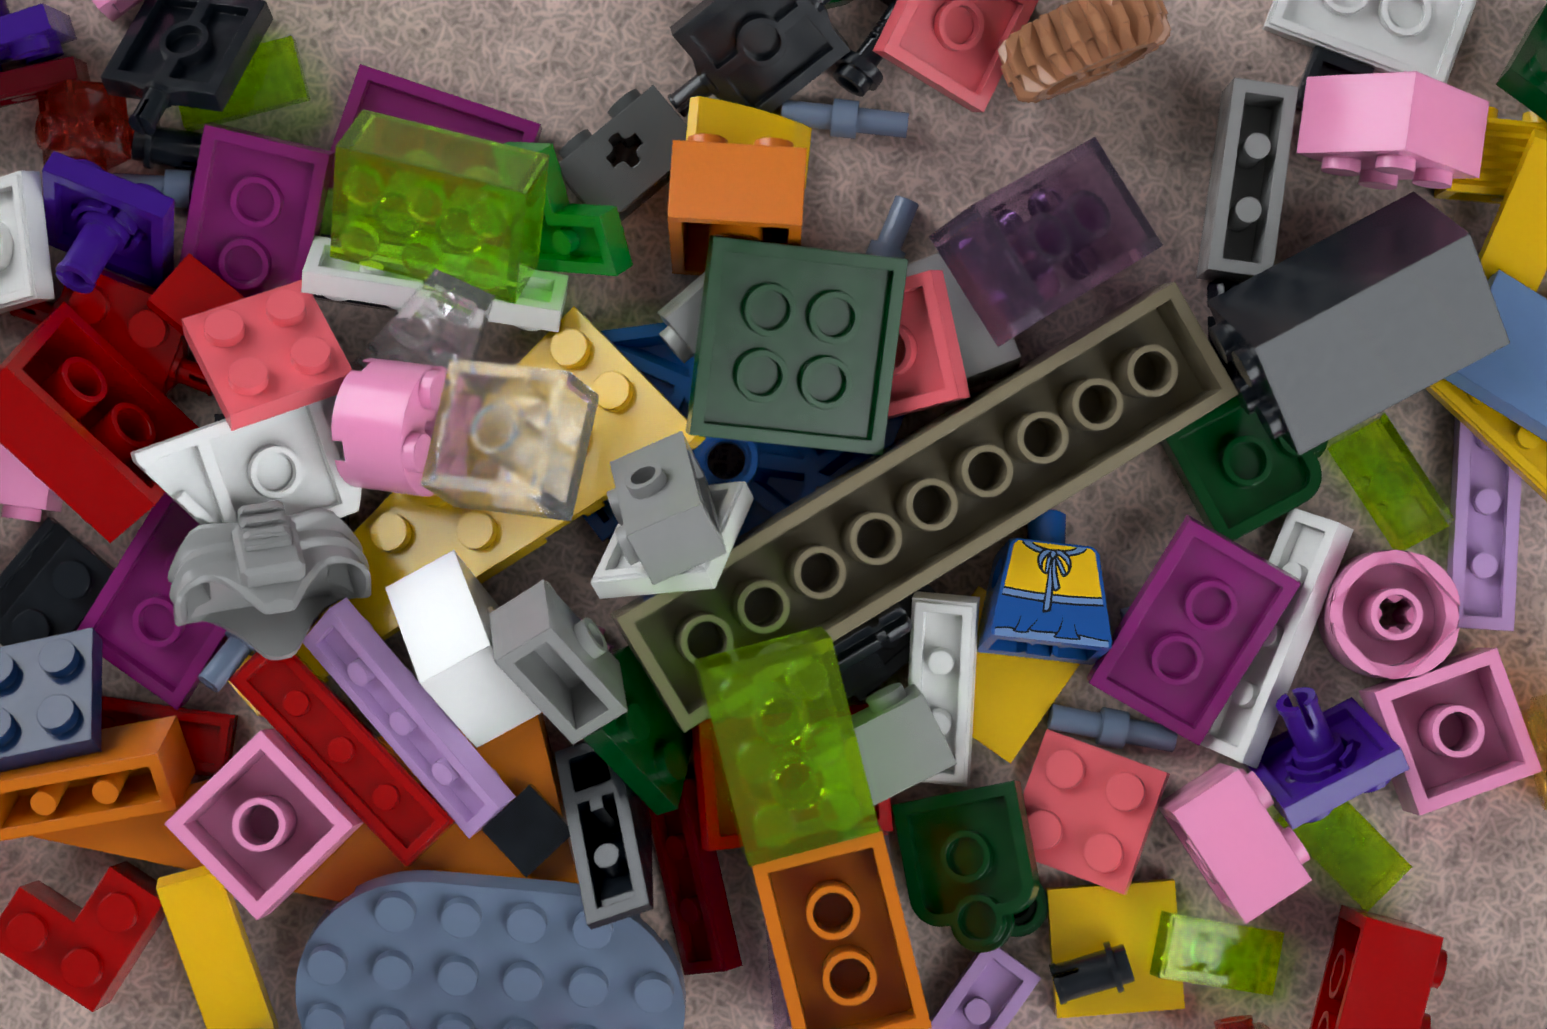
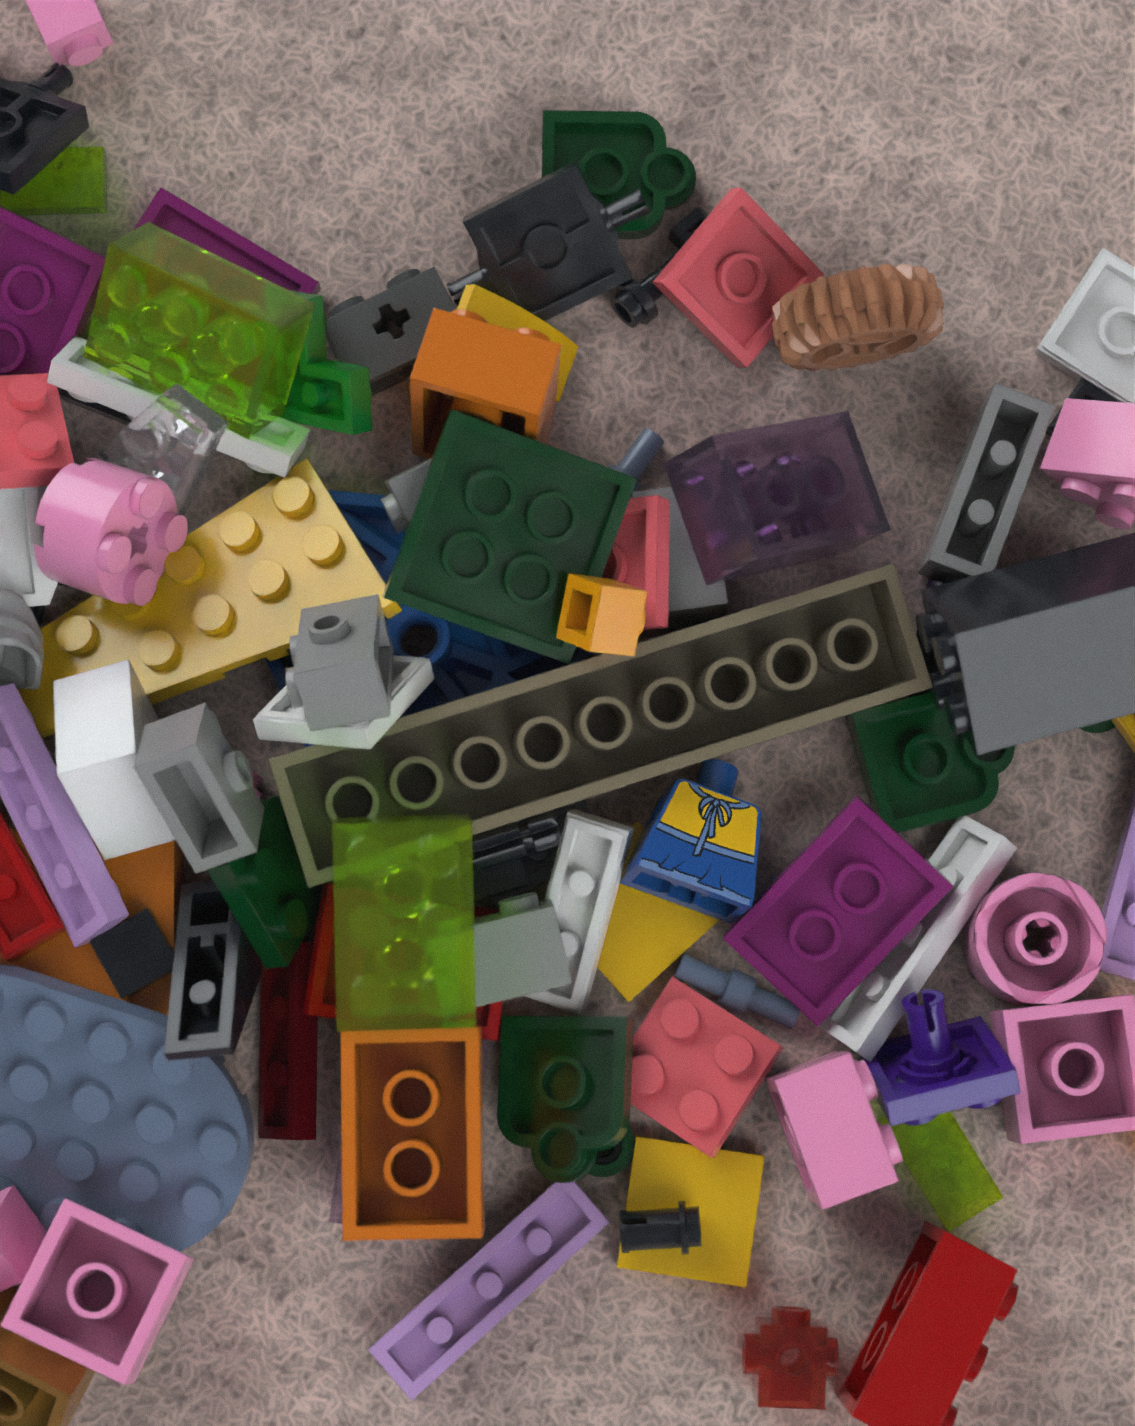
camera: 10 degrees right, 5 degrees down
(510, 439) = (209, 563): clear brick -> none
(847, 118) = (615, 345): sand blue bar -> none
(905, 403) = (602, 615): none -> light orange plate
(1216, 953) = (790, 1238): clear neon green plate -> none
(1391, 483) = (1064, 813): clear neon green plate -> none

